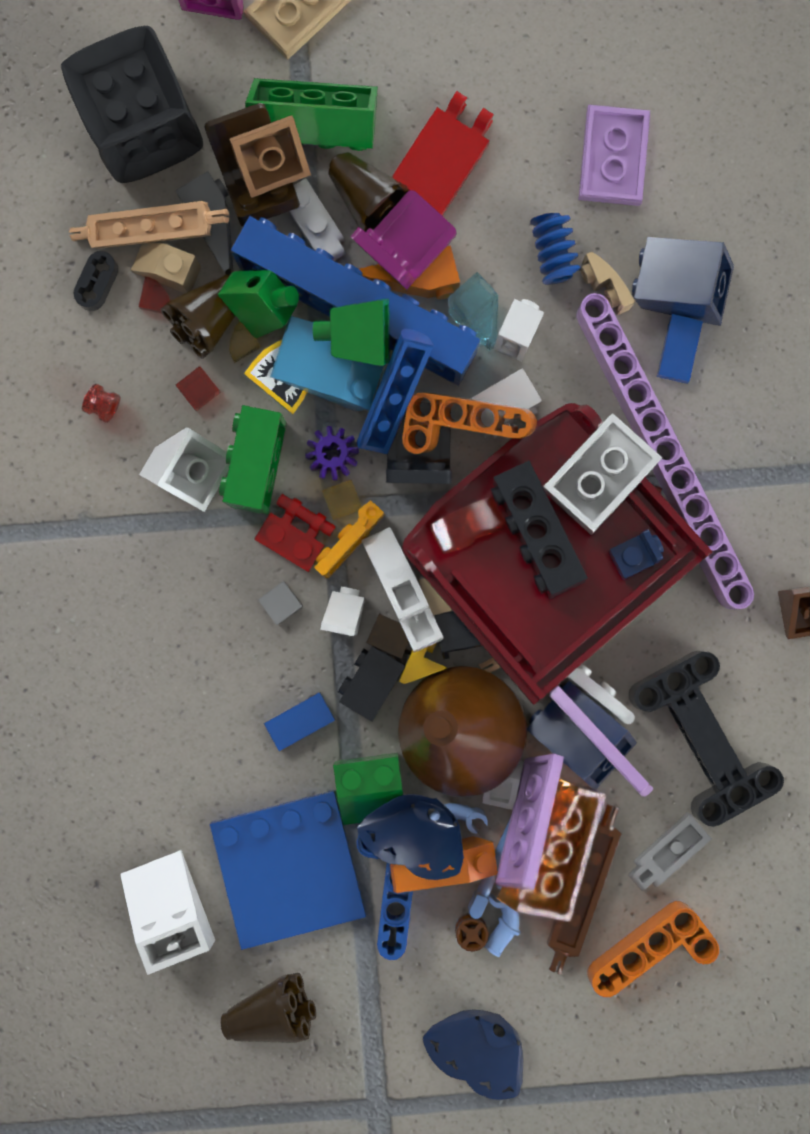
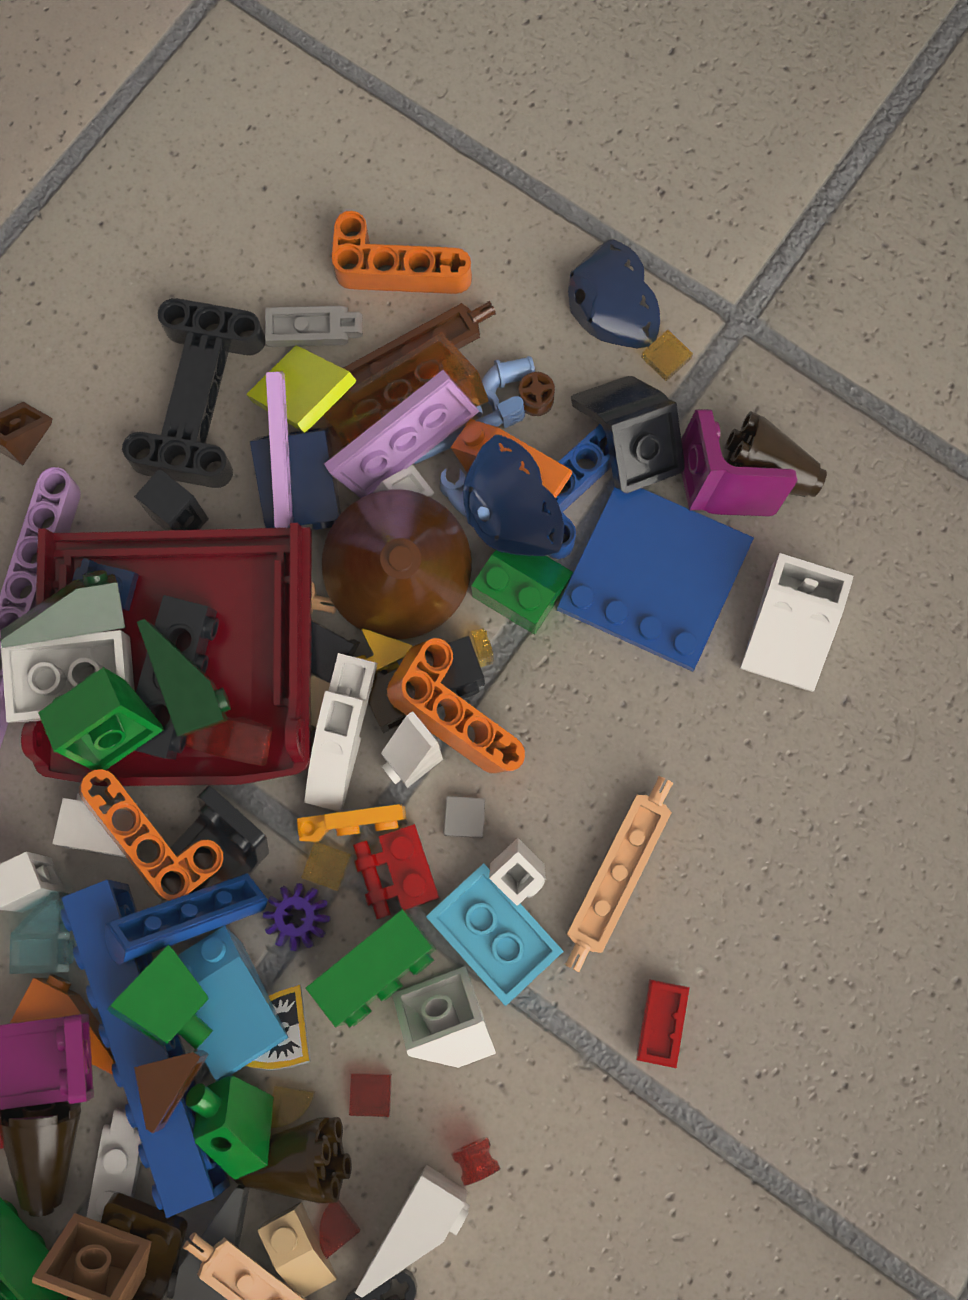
camera: 135 degrees left, 10 degrees down
(52, 578) = (662, 1023): none -> red plate
(100, 335) = (421, 1225): none -> white slope
(152, 649) = (618, 874): none -> light nougat plate
(200, 545) = (494, 935): none -> medium azure plate
(215, 595) = (517, 872): none -> white brick
(297, 965) = (723, 488): none -> magenta piece
(299, 721) = (537, 694): blue tile -> none
(315, 287) = (164, 1085): none -> reddish brown slope
(332, 662) = (458, 712): none -> orange beam
(361, 723) = (482, 647): none -> clear yellow tile
(379, 966) = (639, 431): none -> black piece
(406, 1037) = (667, 355): none -> clear yellow tile
(518, 531) = (187, 691): none -> dark green slope
(552, 462) = (99, 721): none -> green slope
(601, 694) = (247, 495): white hinge -> none
(623, 810) = (310, 384): none -> neon yellow tile
(636, 516) = (75, 610): none -> slope
(645, 644) = (170, 504): none -> black panel

